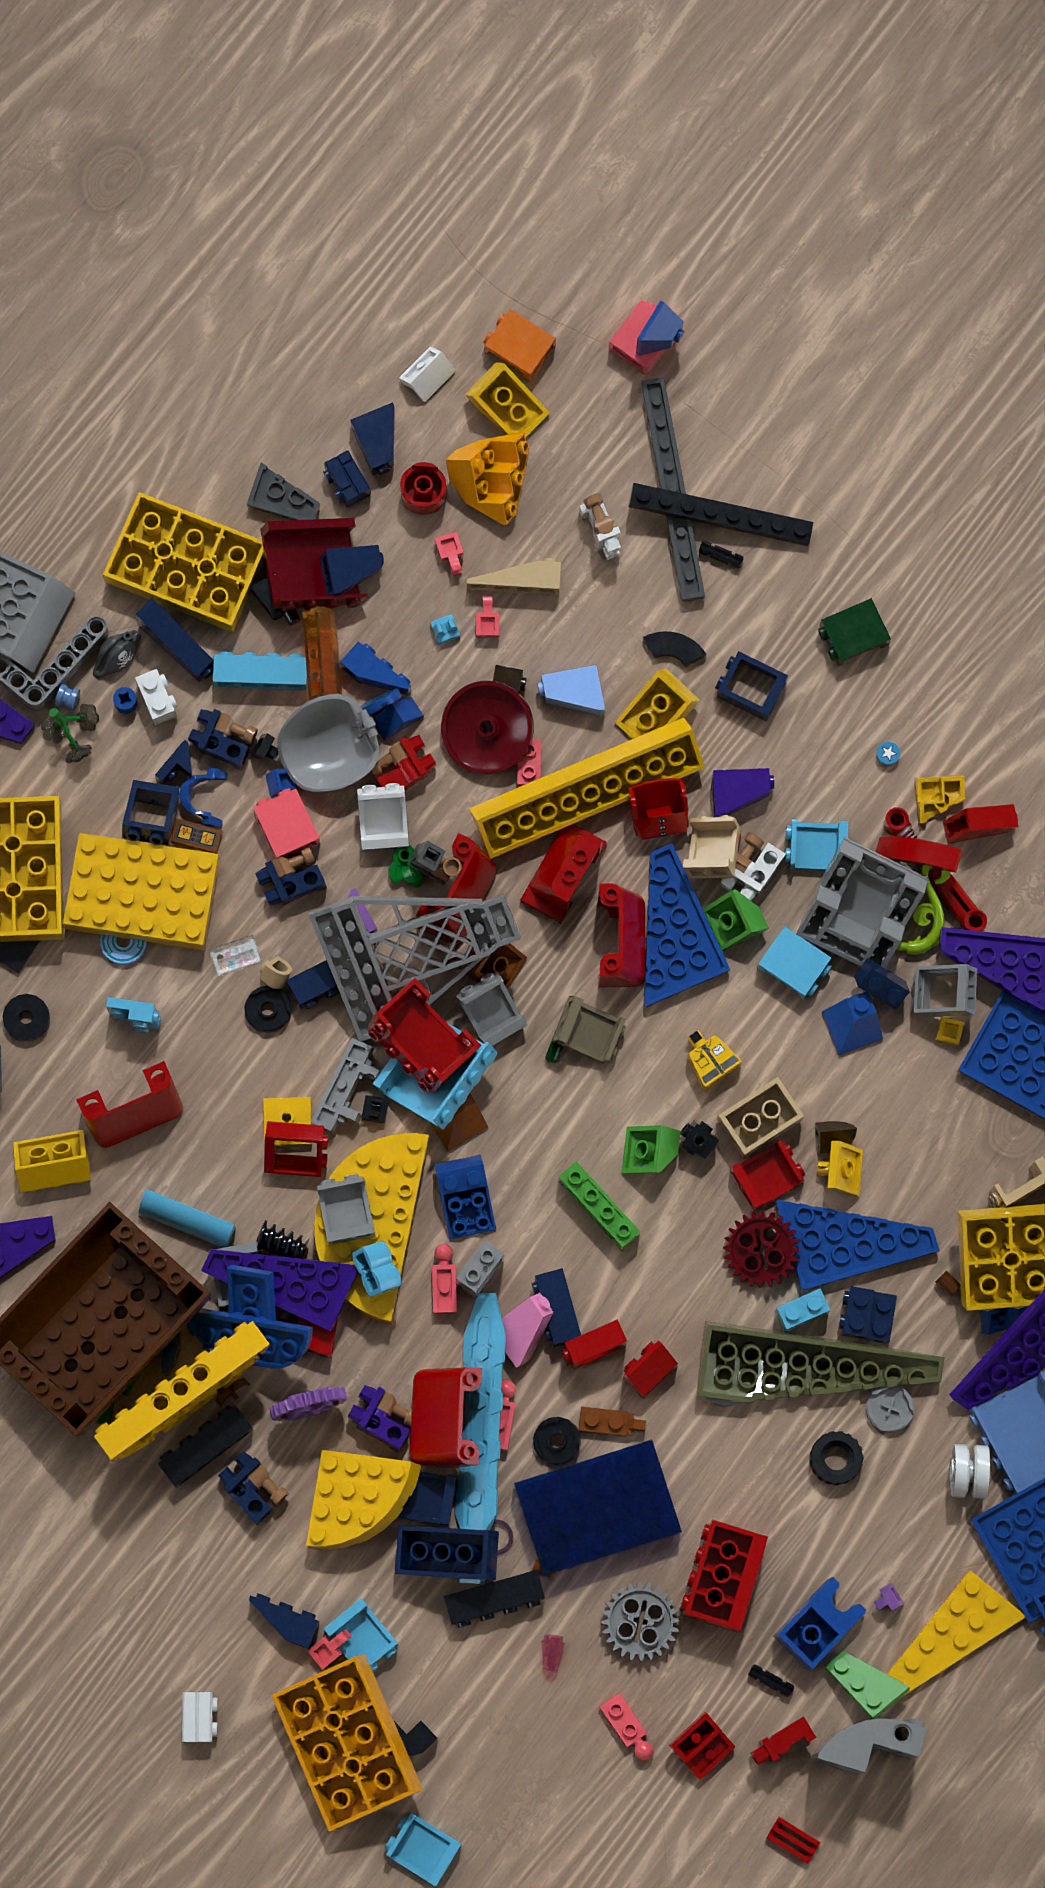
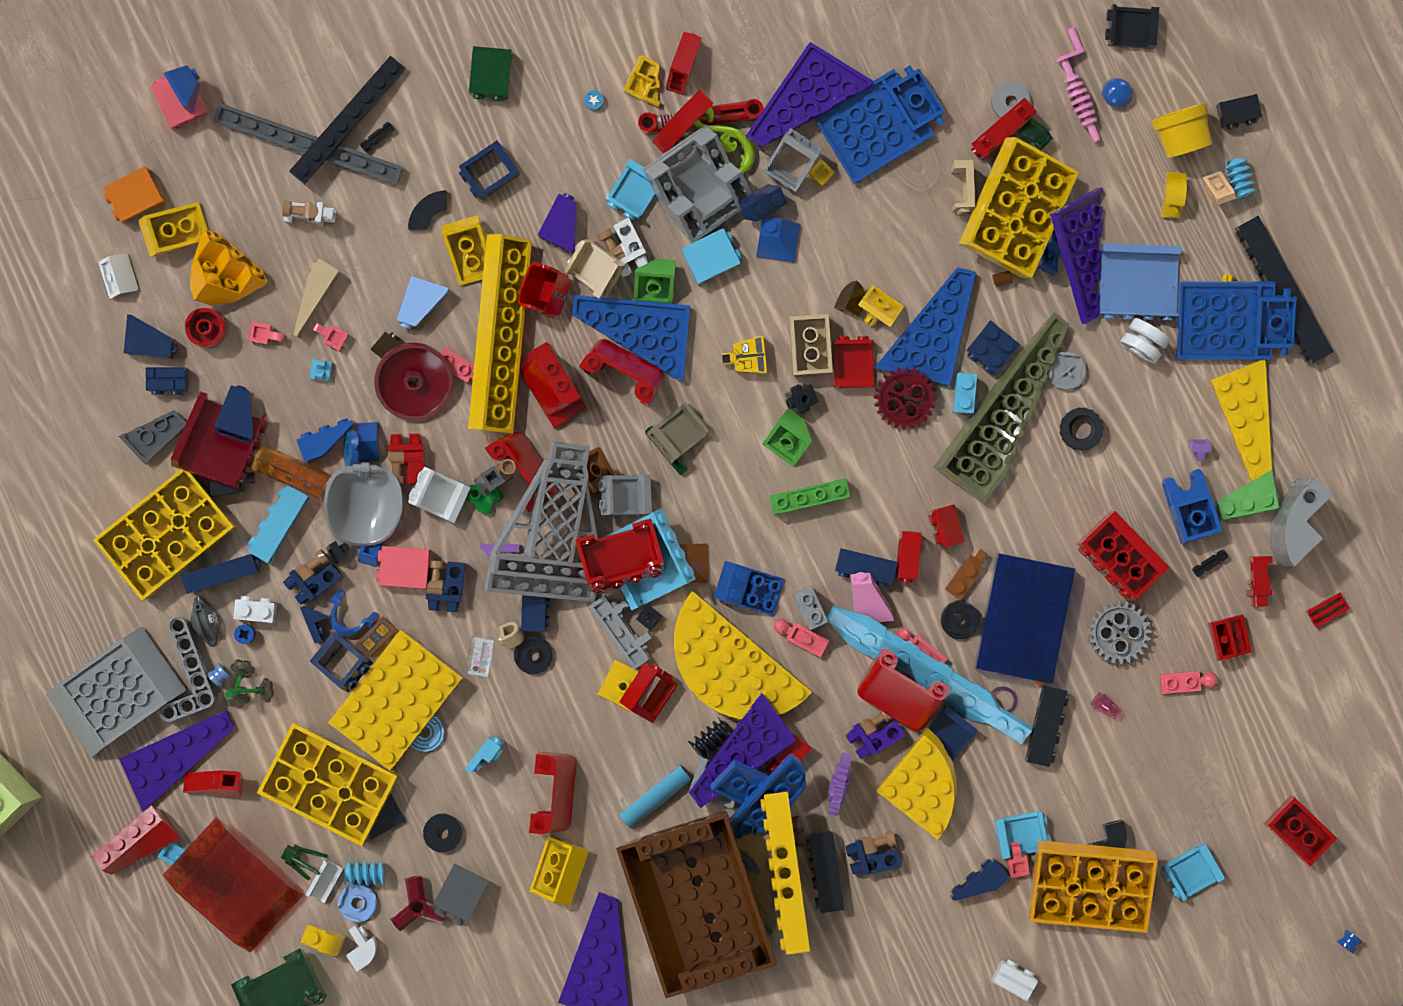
camera: 60 degrees left, 10 degrees up
(345, 1209) = (715, 681): light grey panel -> none
(376, 1268) = (771, 682): medium azure brick -> none
(447, 1552) = (999, 743): dark blue brick -> none

